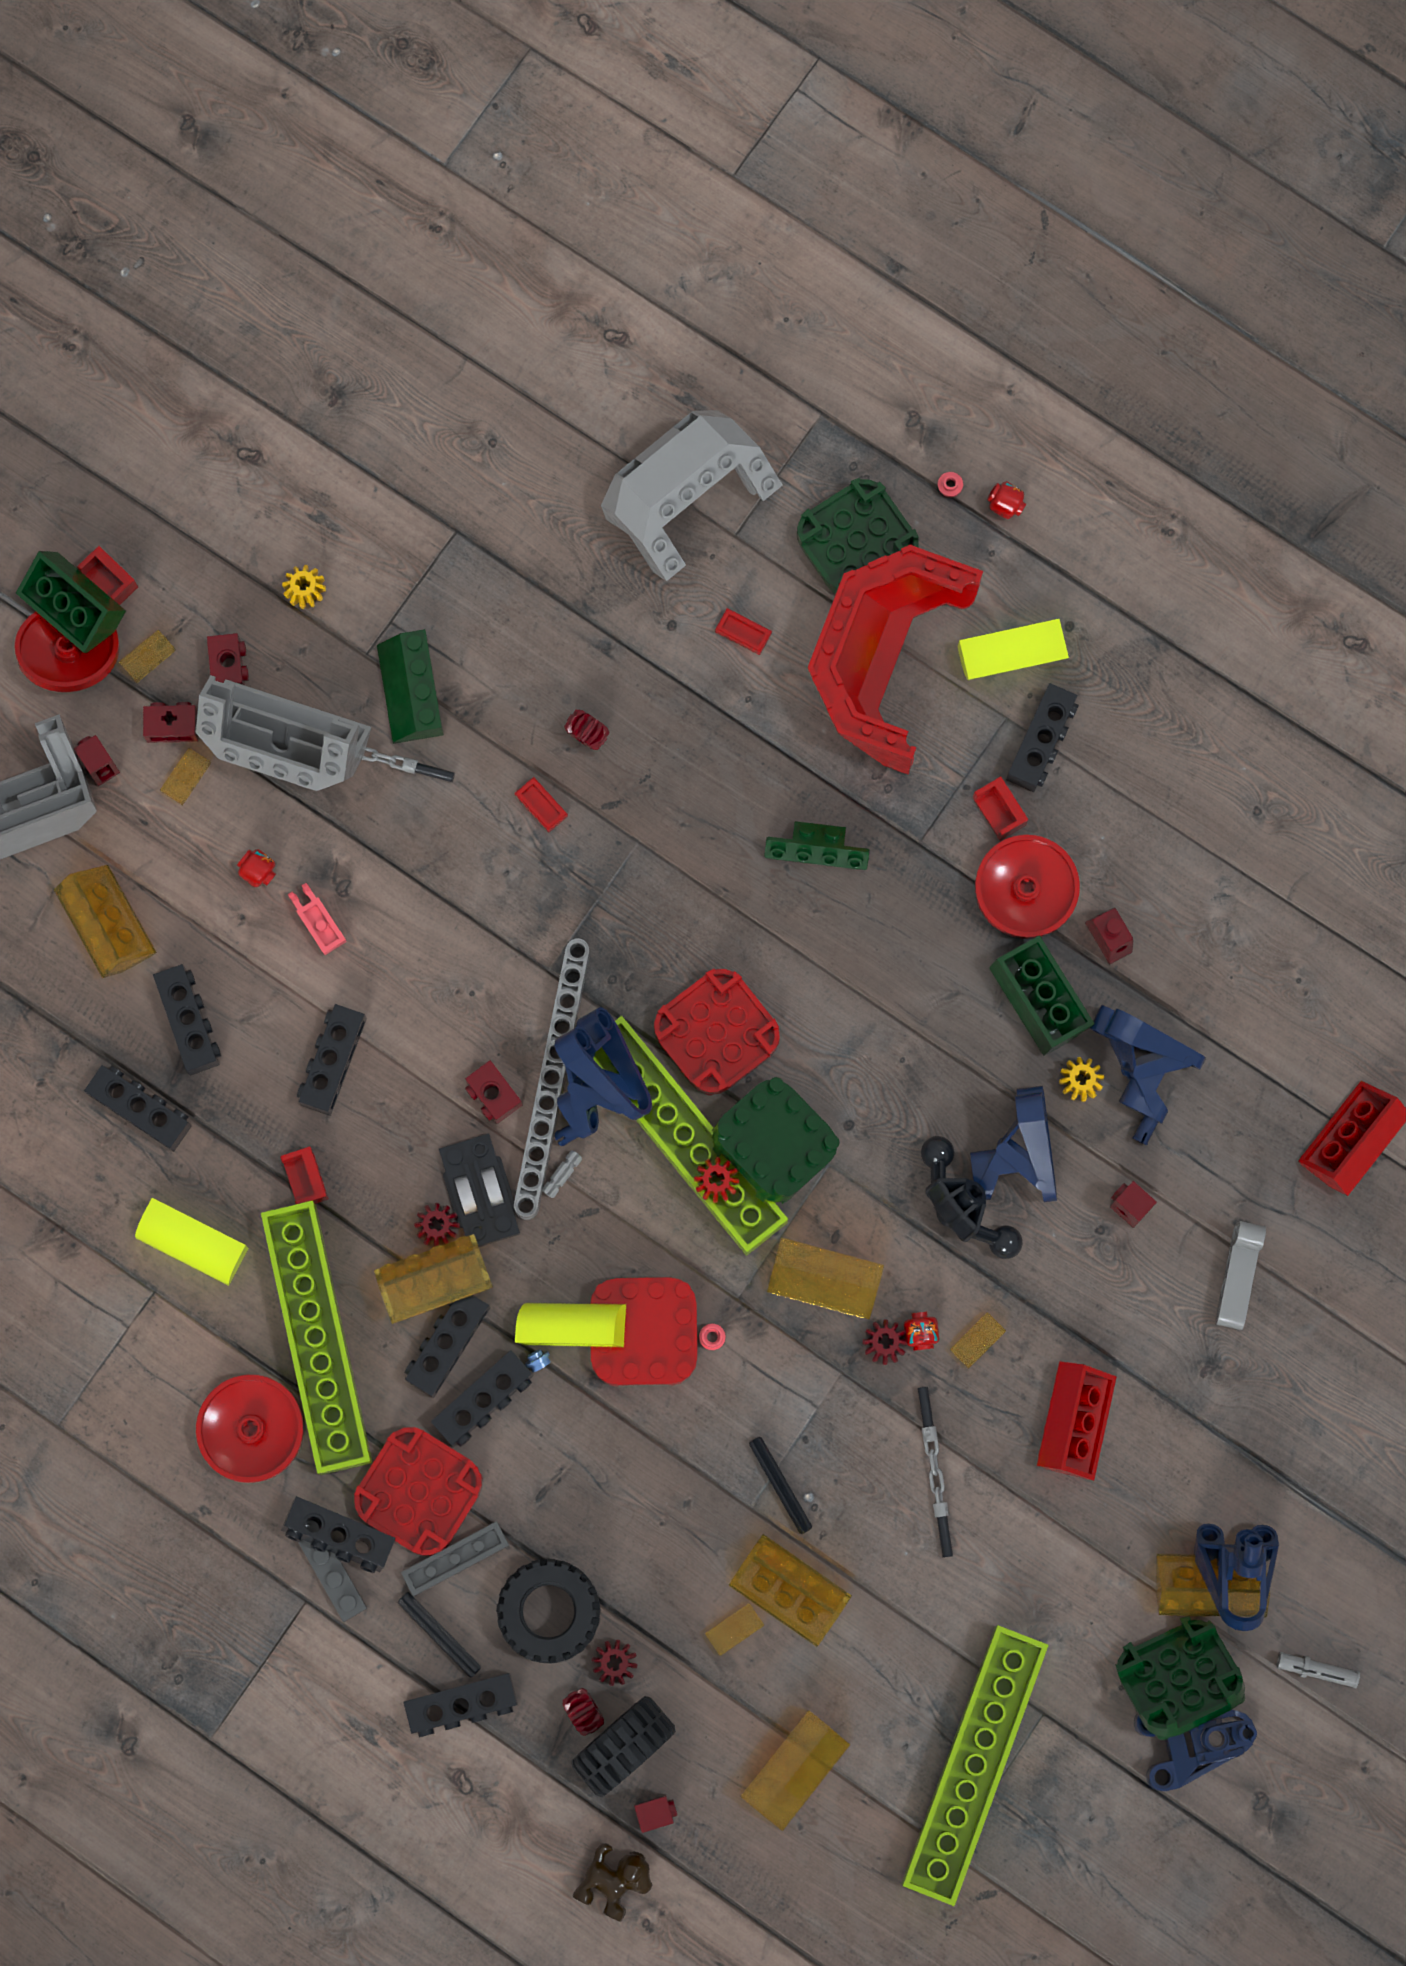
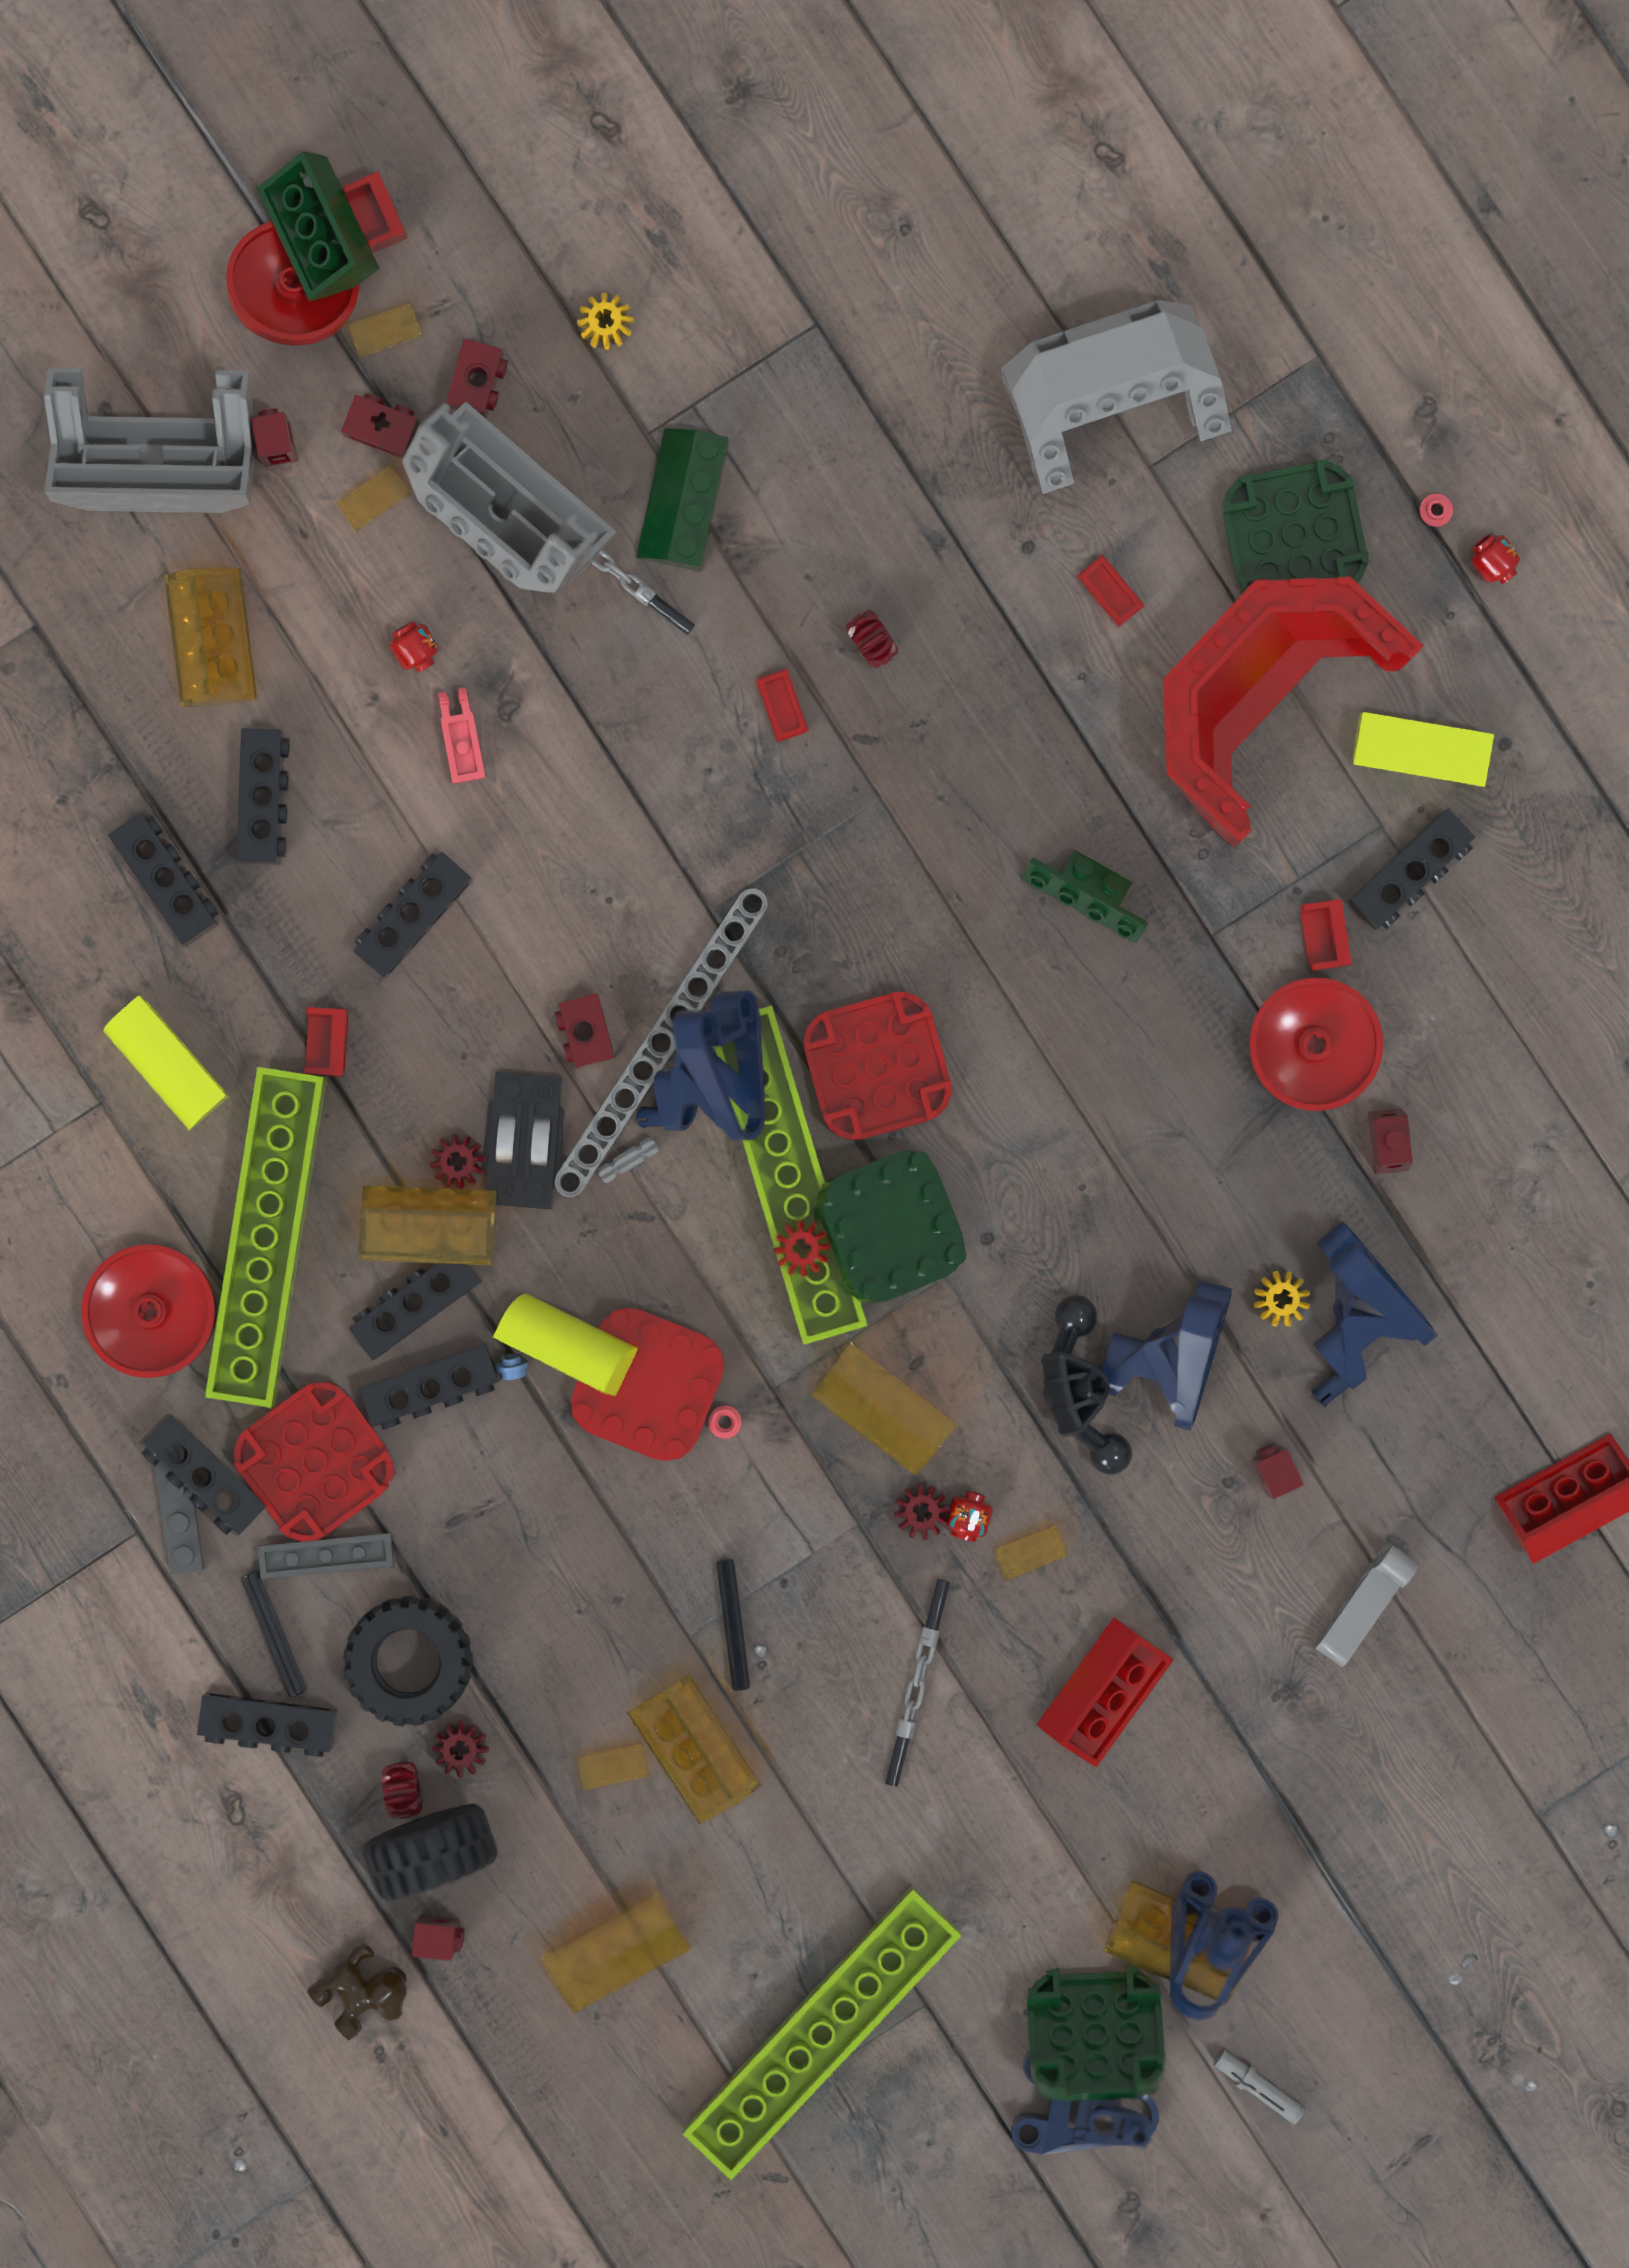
camera: 25 degrees right, 10 degrees up
(1041, 995) = (1277, 1181): dark green slope -> none

